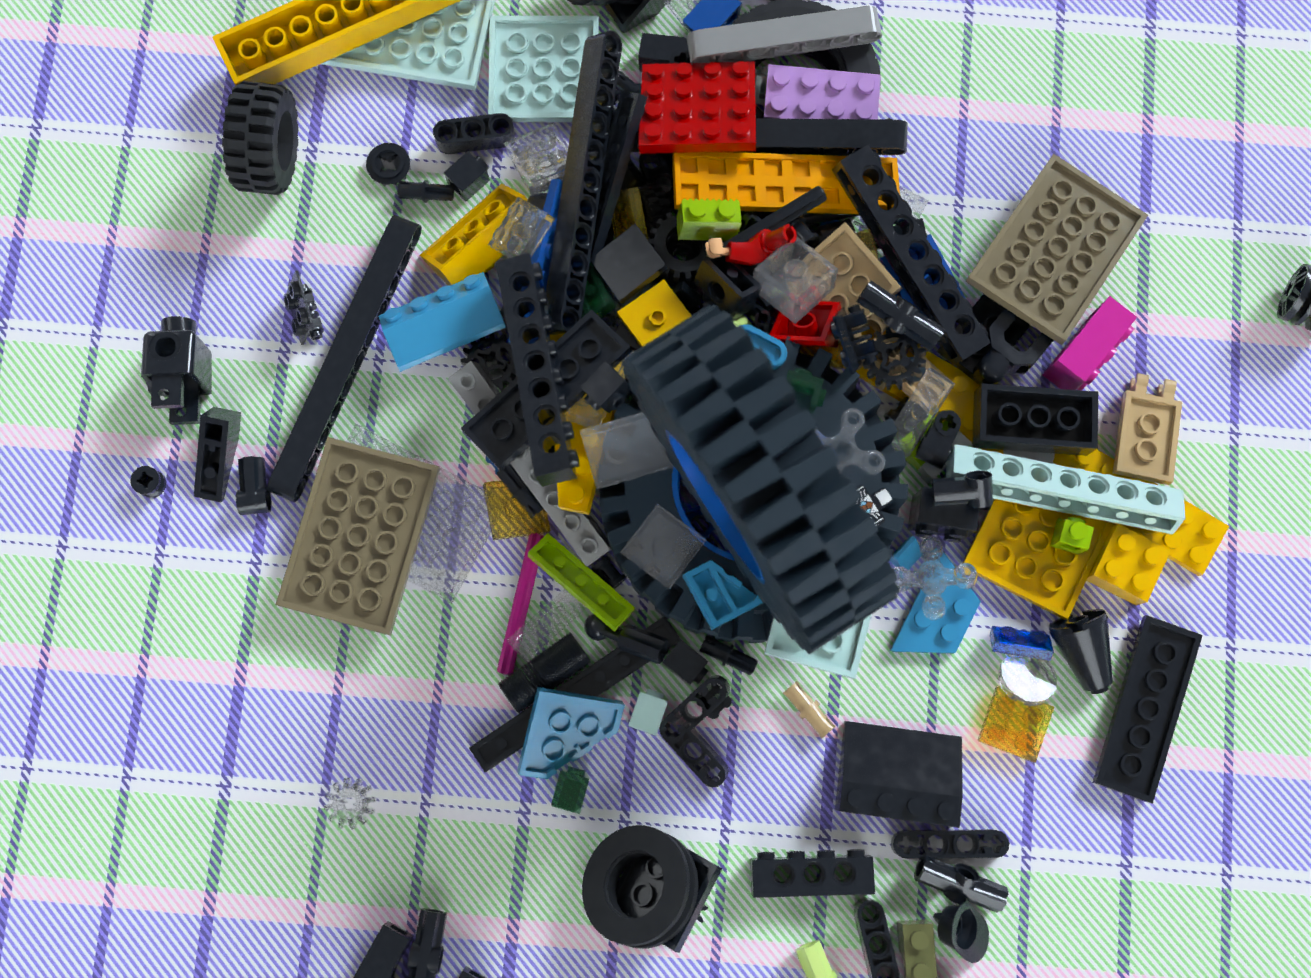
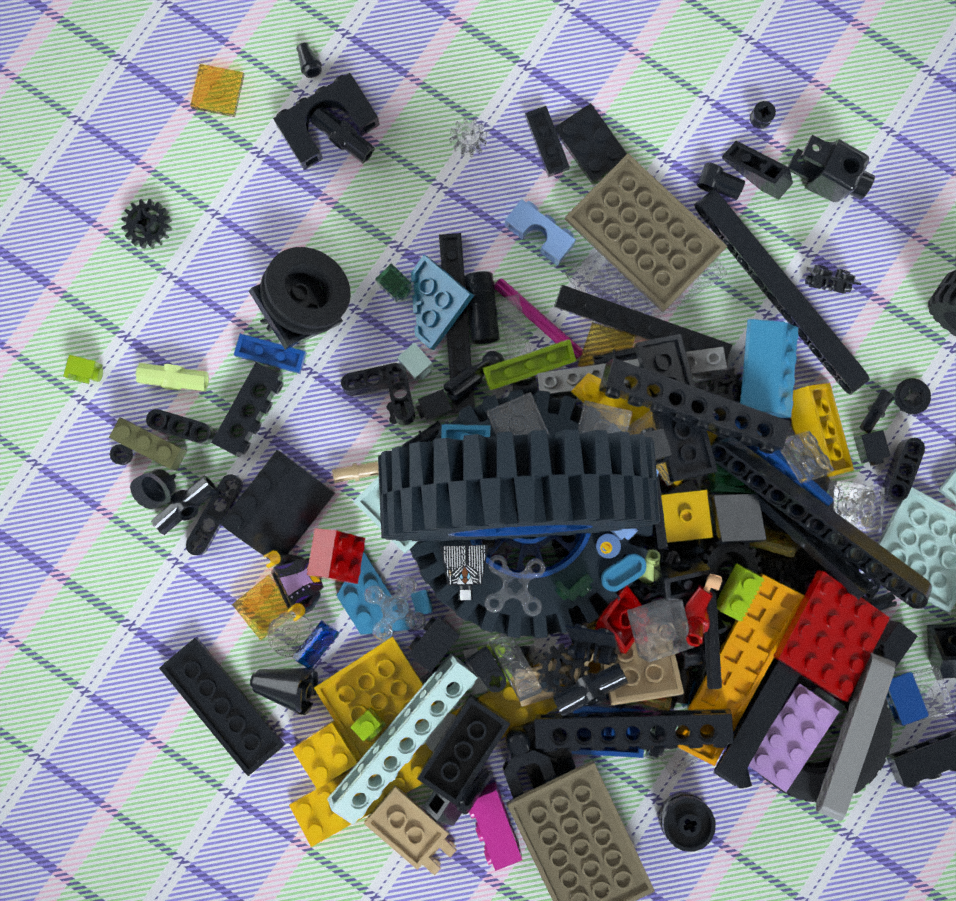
camera: 120 degrees right, 5 degrees up
(281, 657) = (590, 143): none -> black plate
(306, 709) = (547, 141): none -> black plate
(419, 630) = (527, 218): none -> light blue arch
(468, 491) = (632, 321): none -> black plate
(733, 890) = (270, 353): none -> blue plate
(917, 673) = (336, 556): none -> red brick
(964, 161) = (695, 833): none -> black wheel
(968, 700) = (296, 587): none -> torso
(973, 490) = (437, 666): black piece -> none
(1076, 380) = (474, 791): none -> black axle
(1109, 409) = (442, 809): none -> black brick

